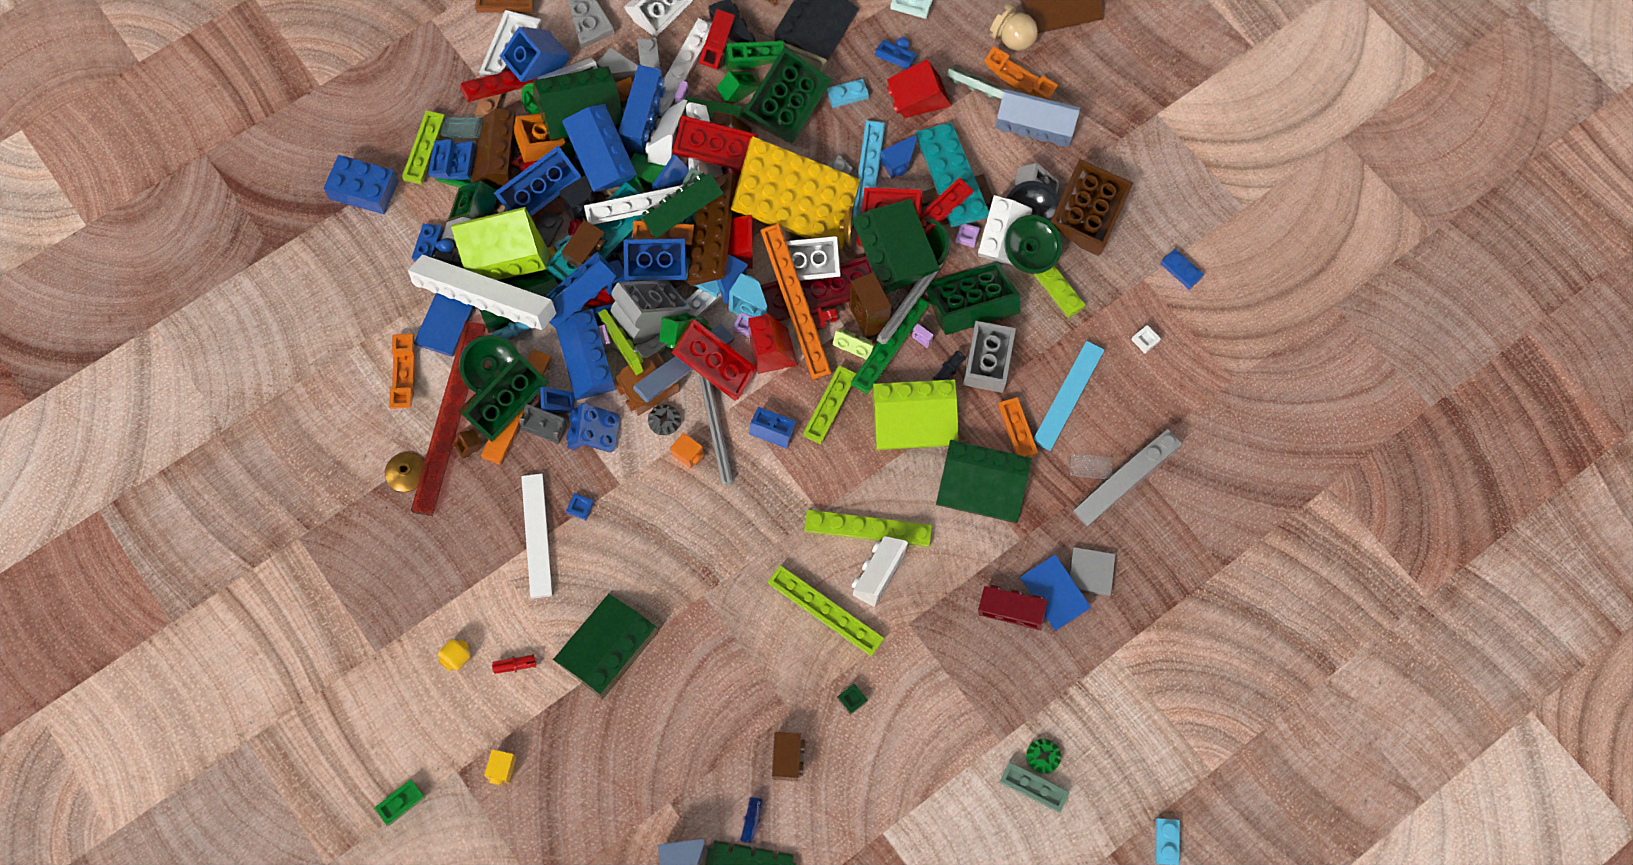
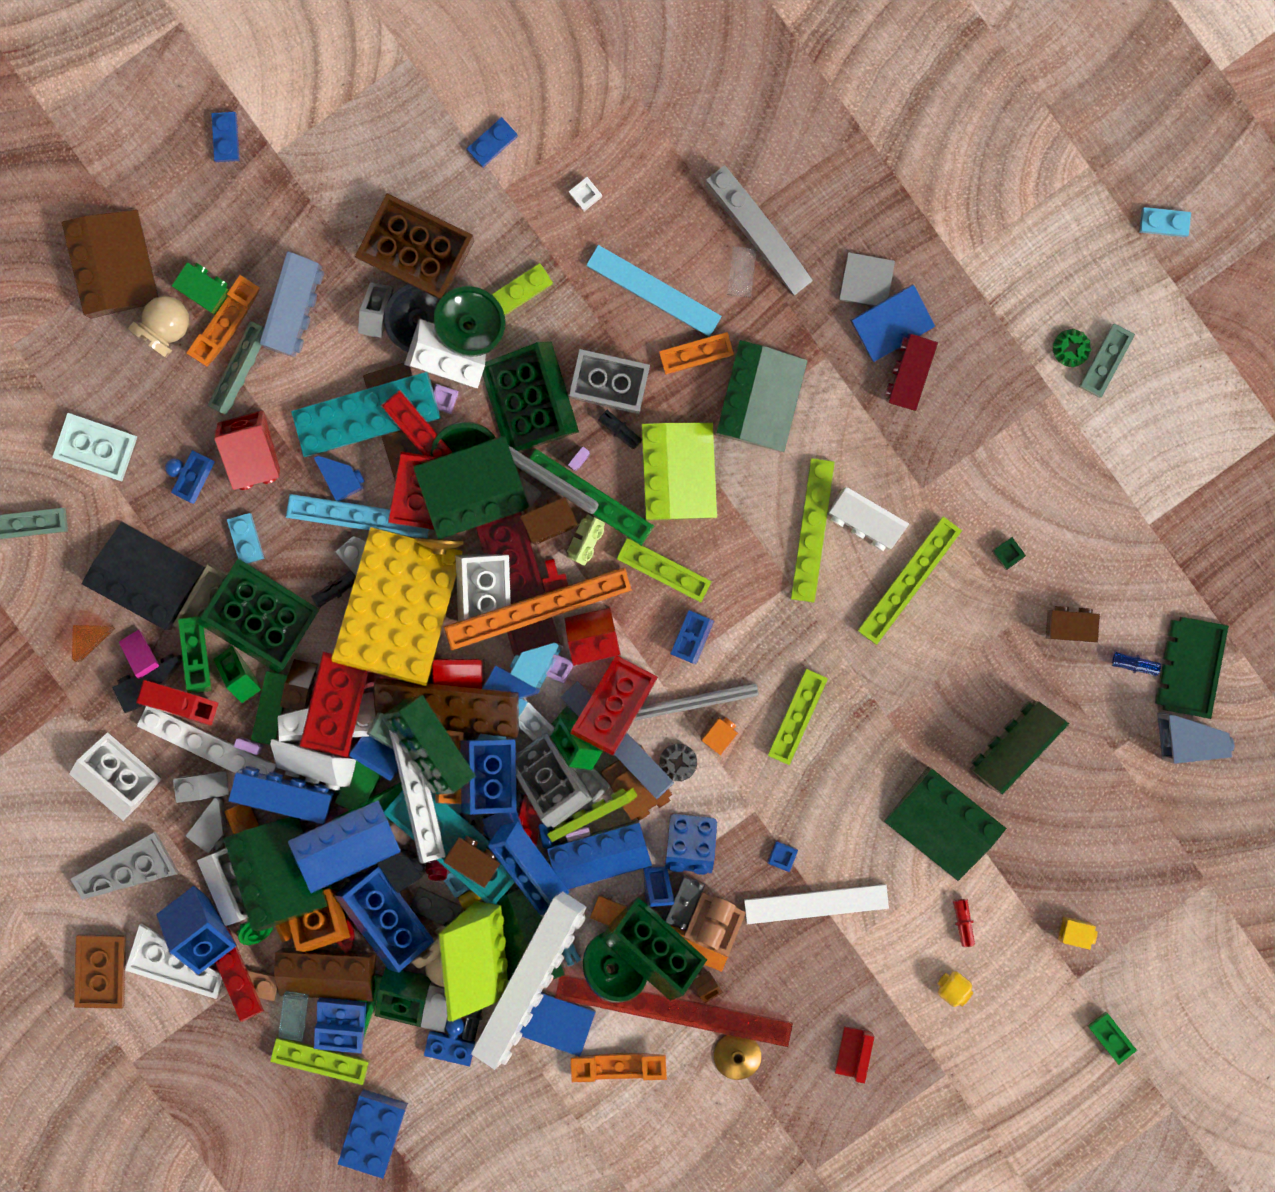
camera: 85 degrees left, 20 degrees up
(400, 570) = (854, 1053): none -> red panel
(521, 447) = (714, 924): none -> nougat plate
(675, 704) = (1018, 746): none -> dark green slope
(703, 516) = (797, 717): none -> lime plate
(754, 16) = (138, 654): none -> dark pink tile
(804, 149) = (334, 589): none -> black pin
(1046, 58) = (201, 288): none -> green brick
(1166, 77) = (225, 137): none -> blue plate

